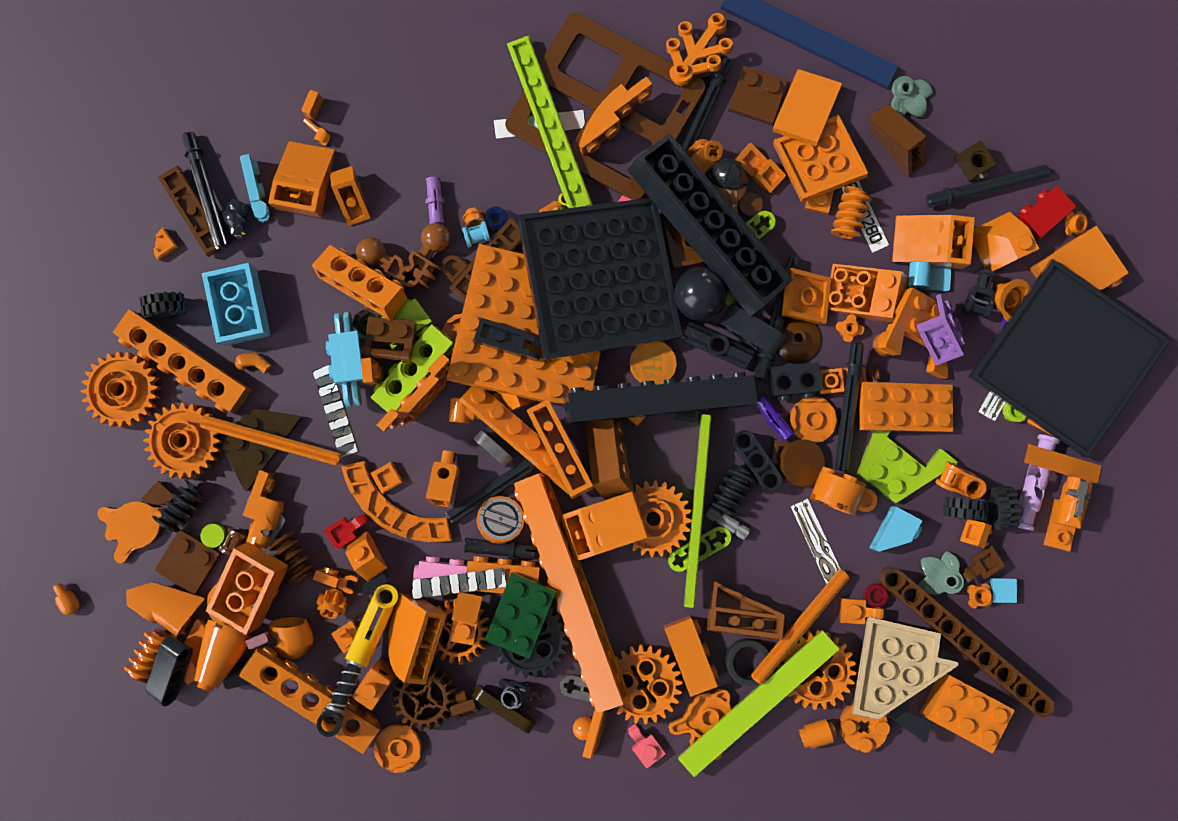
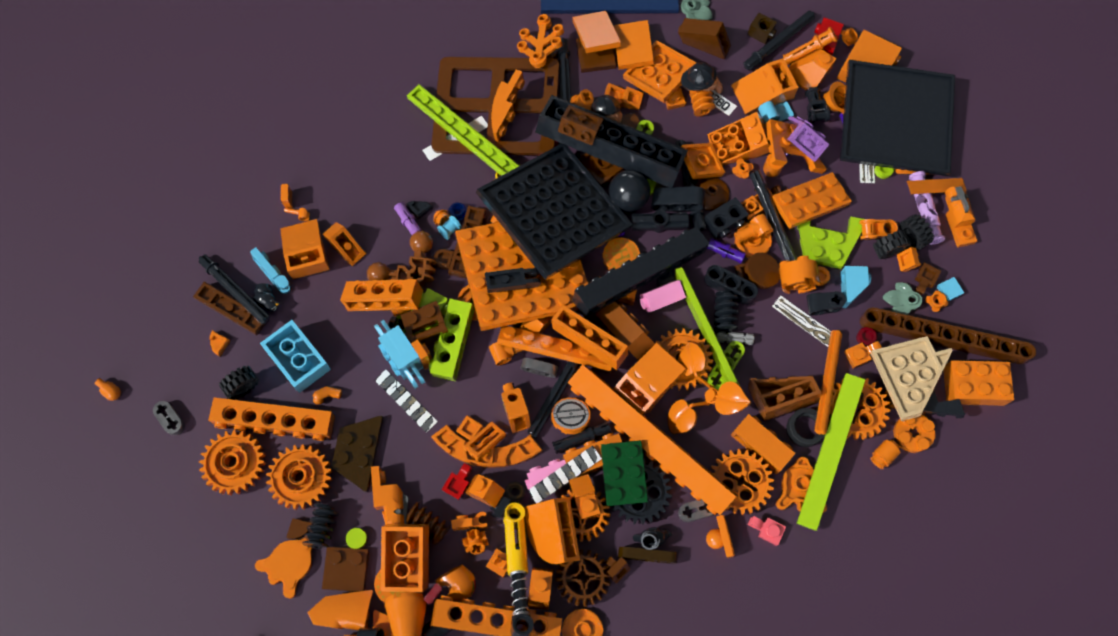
camera: 30 degrees left, 15 degrees down
(26, 240) = (108, 389): none -> orange cylinder
(75, 305) = (172, 415): none -> flat silver beam
(234, 539) = (374, 534): reddish brown bush -> none
(270, 440) = (368, 441): orange axle -> none
(375, 507) = (473, 452): none -> orange tile
(395, 575) = (515, 485): none -> dark brown plate
(414, 405) = (465, 361): orange wing -> none
(455, 192) = (419, 208): none -> black tile
(671, 436) = (662, 296): none -> bright pink brick
(675, 598) = (727, 400): none -> orange plant
(679, 191) = (580, 125): none -> reddish brown bracket
(771, 69) = (596, 32): none -> orange tile
(825, 411) = (758, 226): none -> orange pin
(847, 534) = (822, 303): none -> black piece
(860, 195) = (701, 77): none -> black piece
(1029, 217) = (818, 42): none -> orange pin

